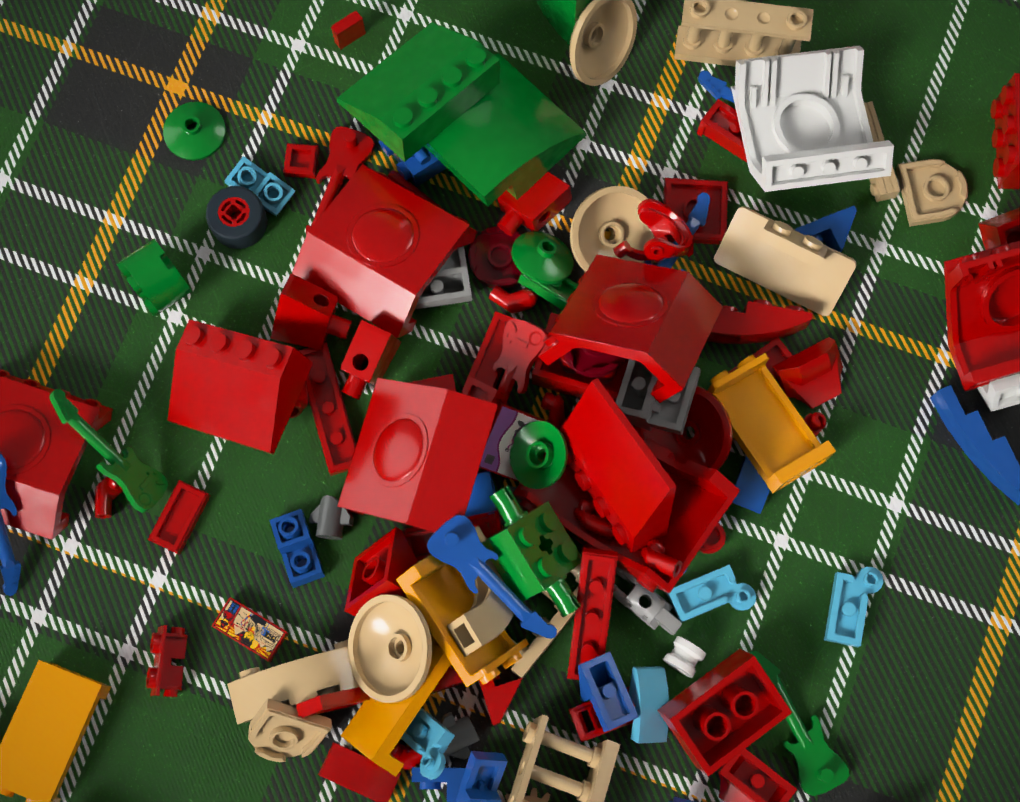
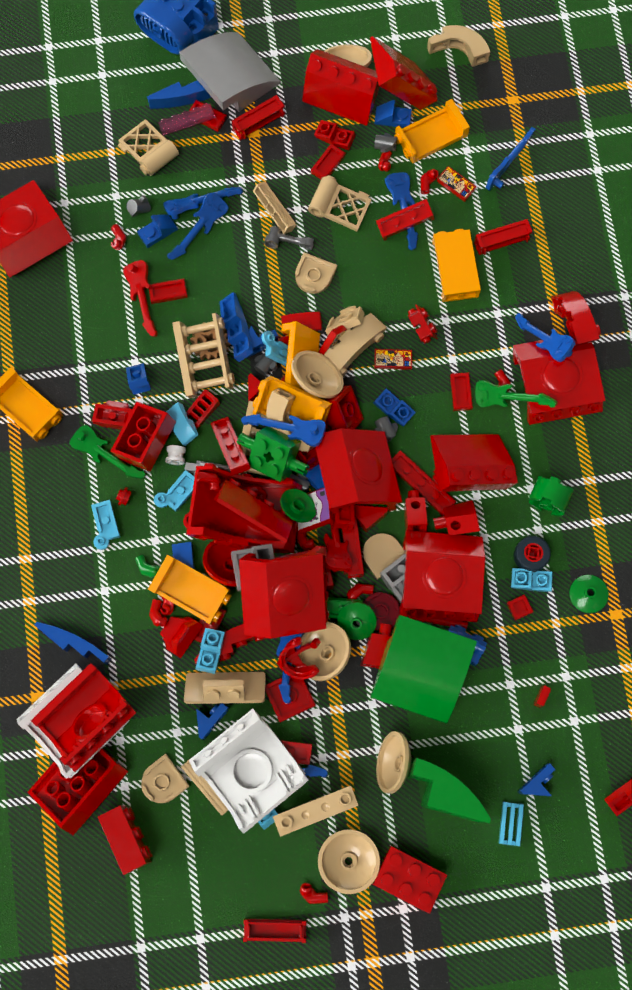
camera: 150 degrees right, 0 degrees up
(347, 153) = (497, 625): red piece -> none
(422, 88) = (472, 659): green slope -> none
(448, 334) = (381, 552): none -> tan tile
(607, 692) = (204, 415): blue slope -> none
(783, 315) = (210, 650): none -> medium azure slope
(800, 634) = (123, 496): none -> red plate
(817, 498) = (146, 569): none -> green arm
(836, 421) = (155, 614): none -> red arm

